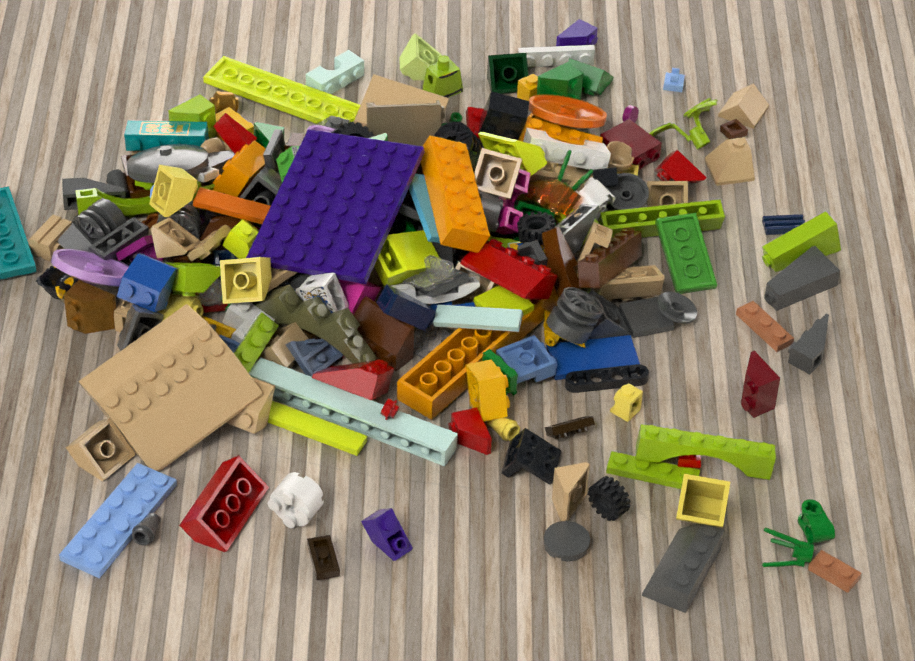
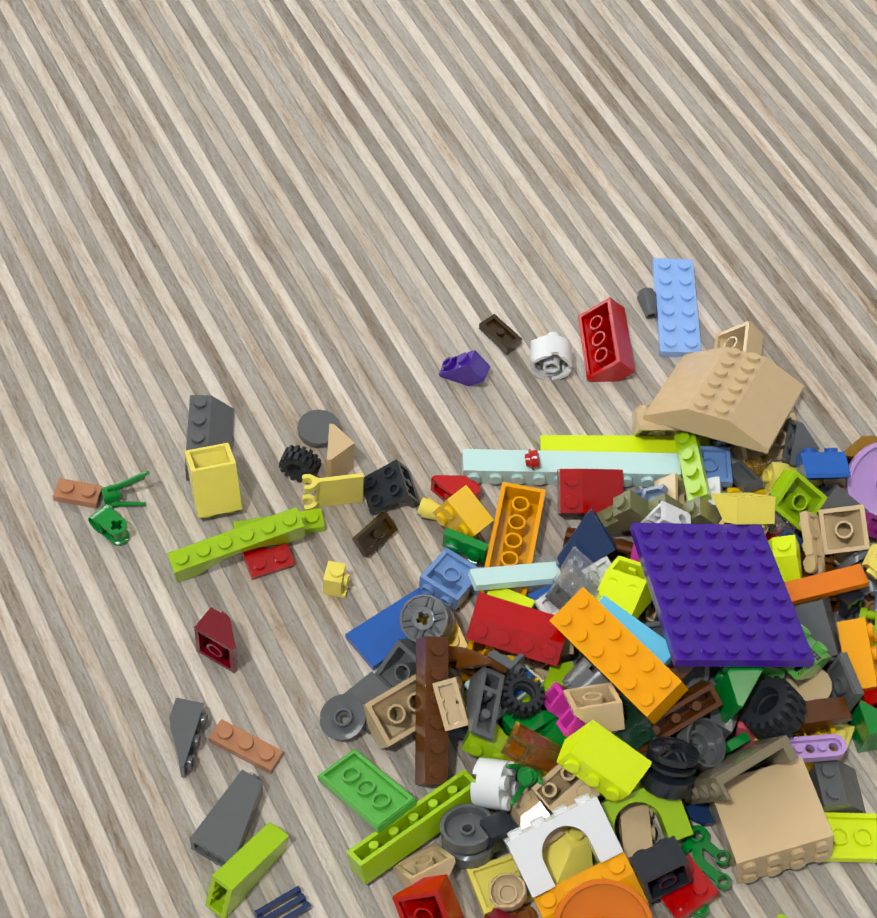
camera: 150 degrees right, 10 degrees up
(597, 456) = (332, 490): none -> light yellow flag
(605, 375) = (368, 606): black beam -> none

